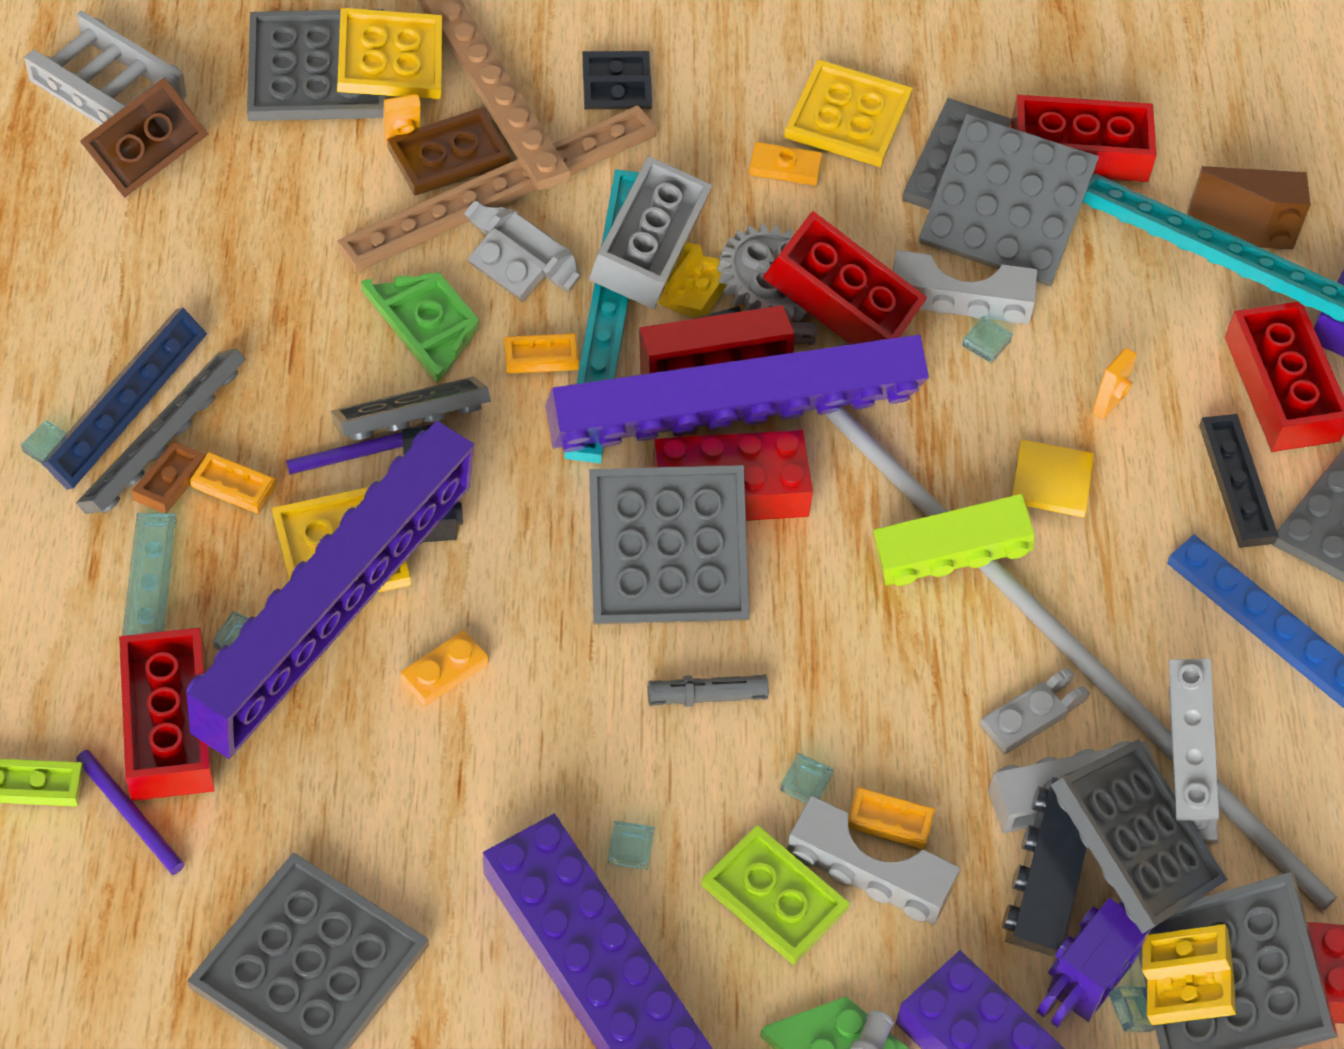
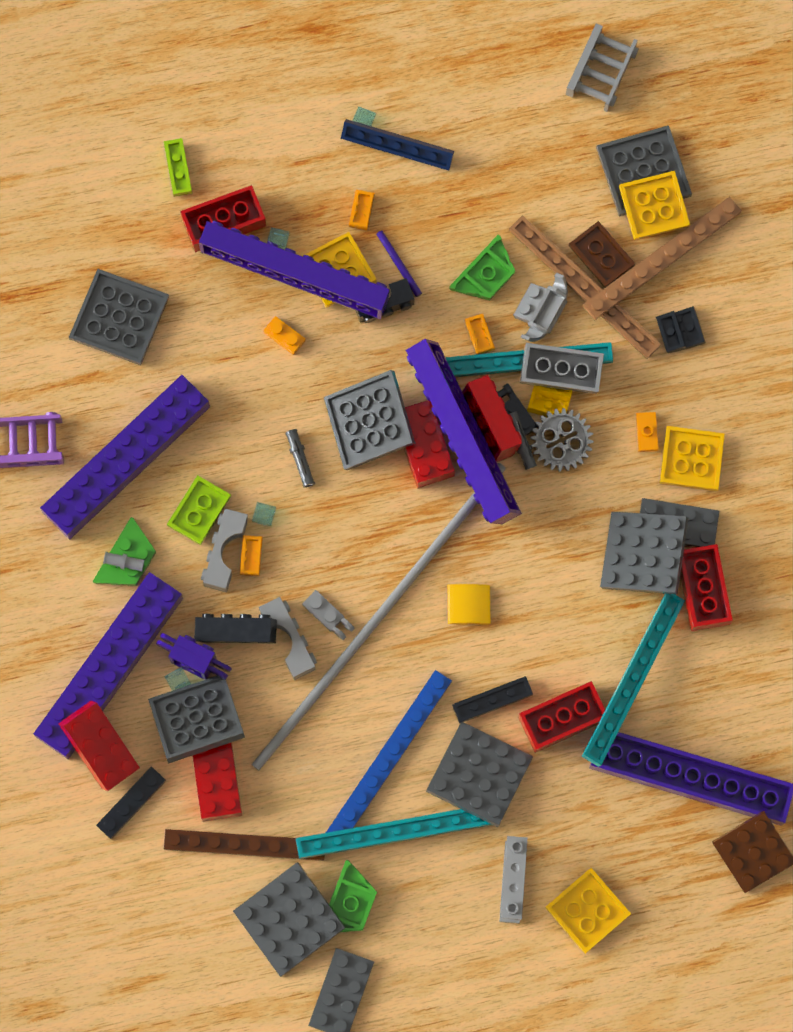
camera: 80 degrees right, 20 degrees up
(130, 812) = (175, 220): dark purple bar -> none
(144, 137) = (560, 101): reddish brown slope -> none
(150, 573) = (297, 189): clear light blue tile -> none
(153, 440) = (378, 166): dark grey plate -> none
(168, 477) = (355, 179): dark orange plate -> none
(398, 410) = (423, 278): dark grey plate -> none
(401, 115) = (608, 223): light orange plate -> none
(631, 845) = (210, 441): clear light blue tile -> none
(843, 284) = (552, 474): red brick -> none
(954, 540) = (410, 558): lime brick -> none
(987, 339) = (553, 559): clear light blue tile -> none
(1003, 296) = (583, 564): light grey arch -> none
(1115, 383) = (530, 625): light orange plate -> none
(1133, 832) = (251, 662): dark grey plate -> none
(1189, 975) = (193, 698): yellow slope -> none
(1194, 745) = (306, 685): light grey fence -> none
(1253, 204) = (678, 694): reddish brown slope -> none

